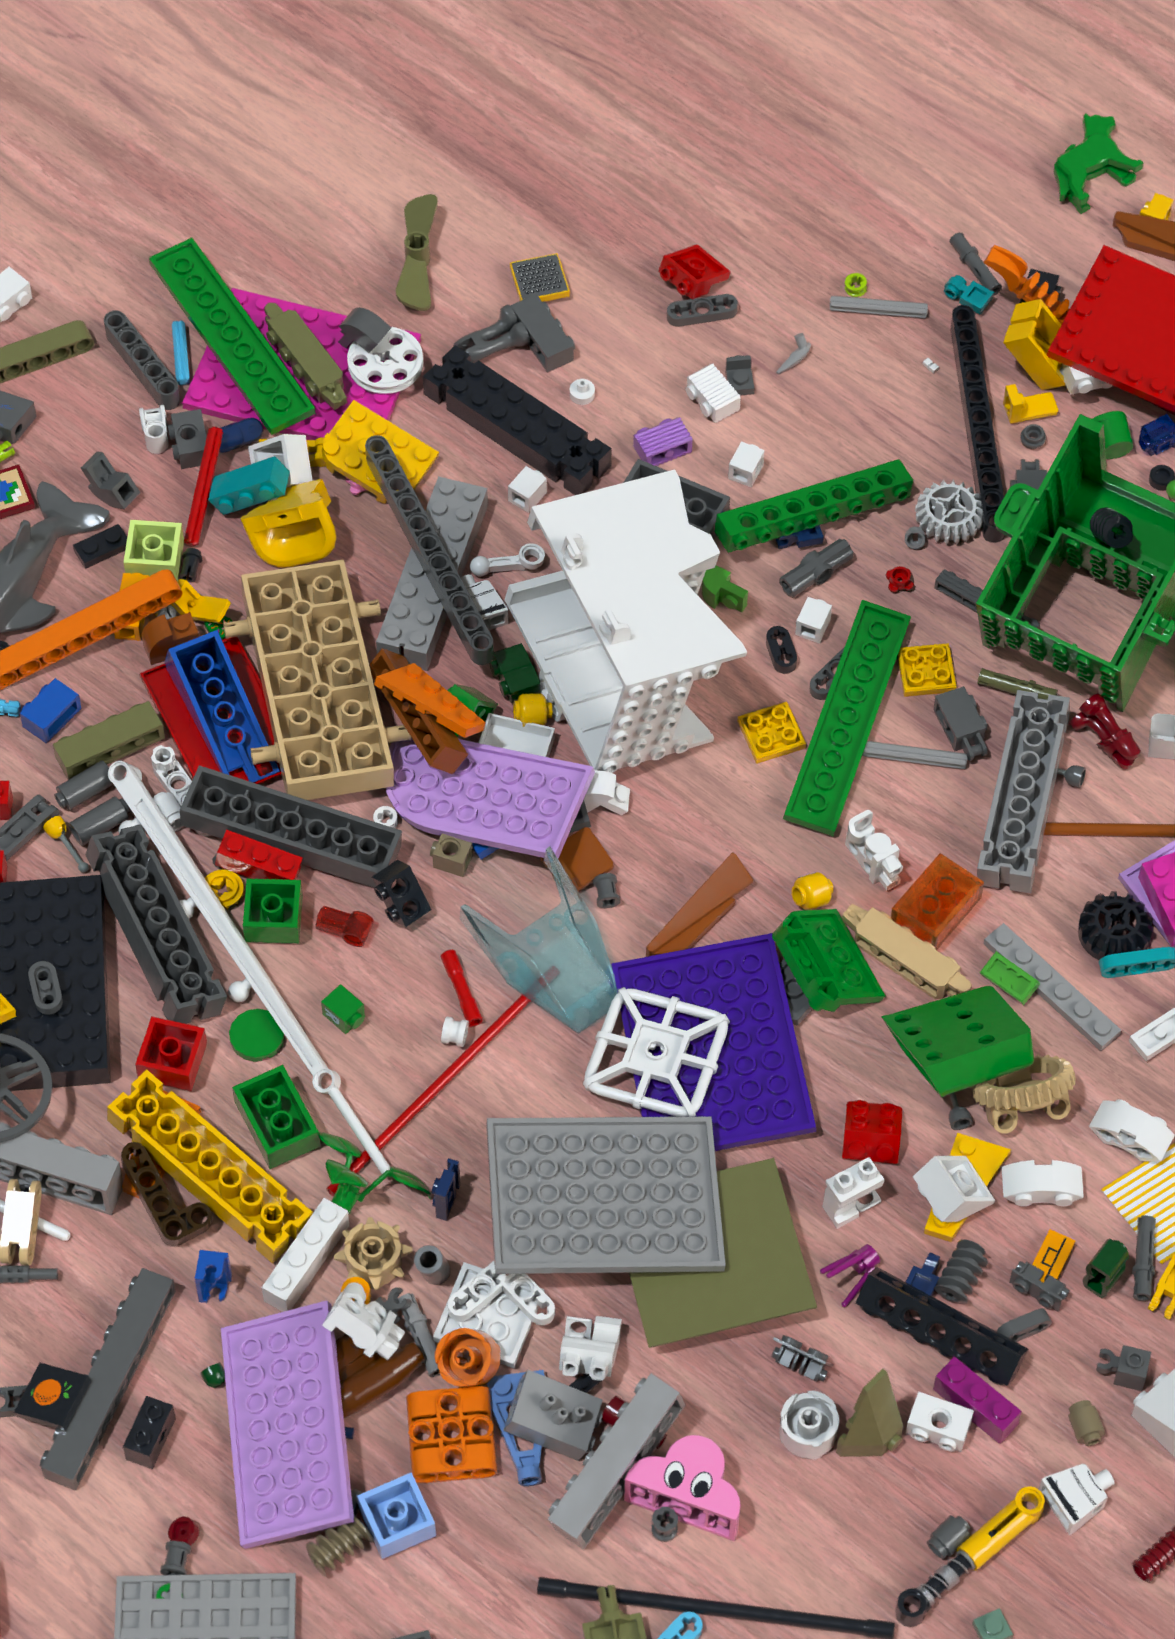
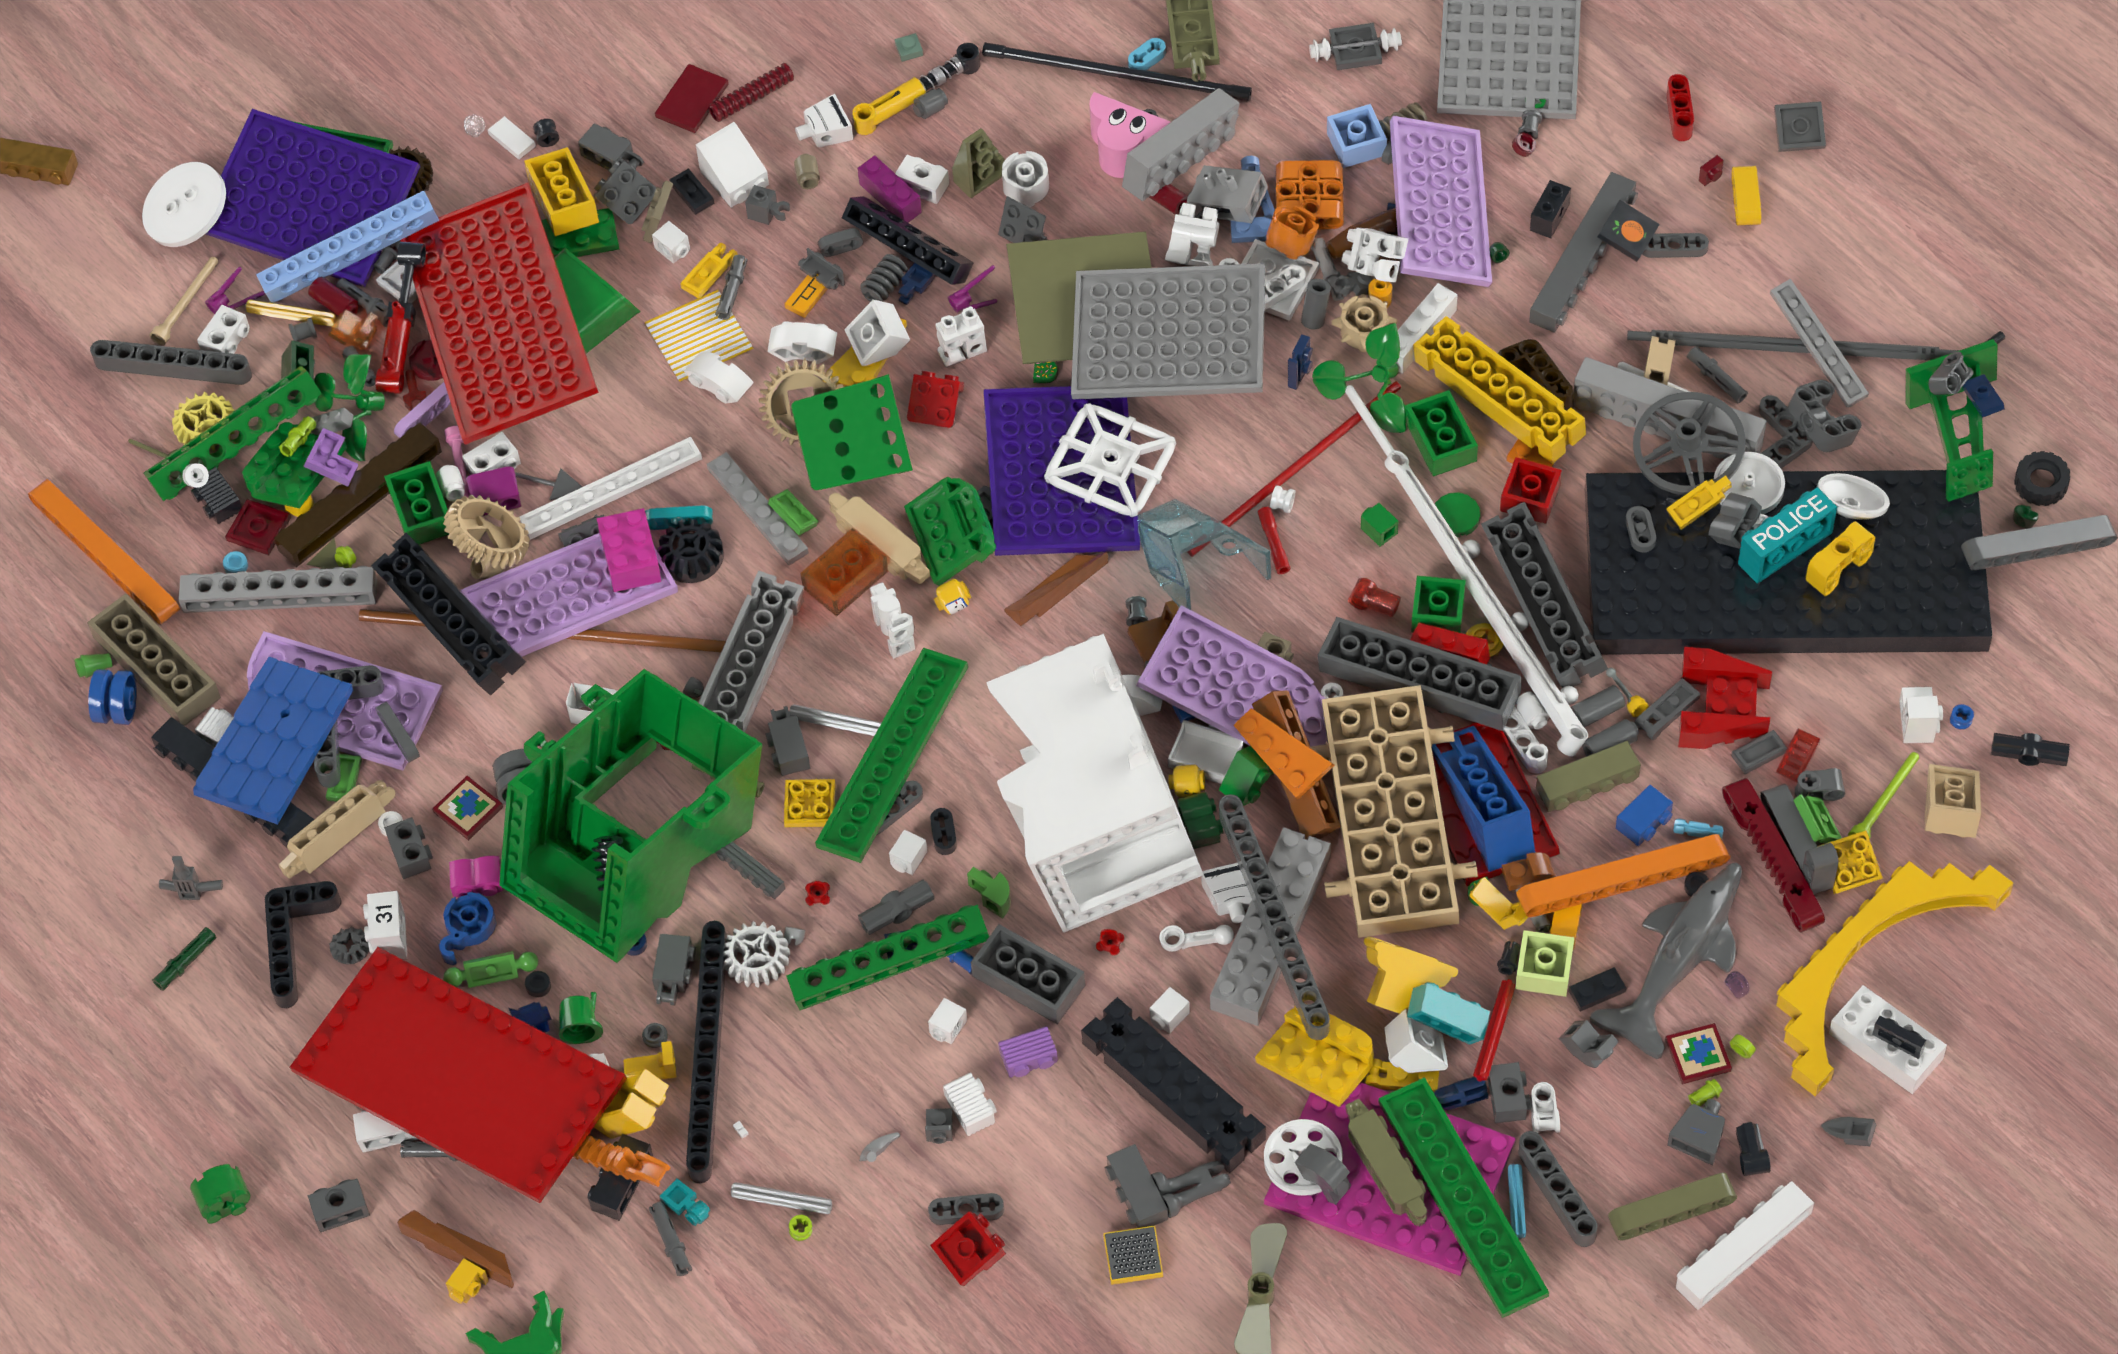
camera: 170 degrees left, 0 degrees up
(212, 1272) = (1497, 311): blue hinge -> none
(405, 890) = (1322, 606): black brick -> none
(582, 391) = (1102, 1124): white tile -> none
(771, 732) = (965, 753): yellow tile -> none
(1106, 1267) = (766, 268): dark green brick -> none

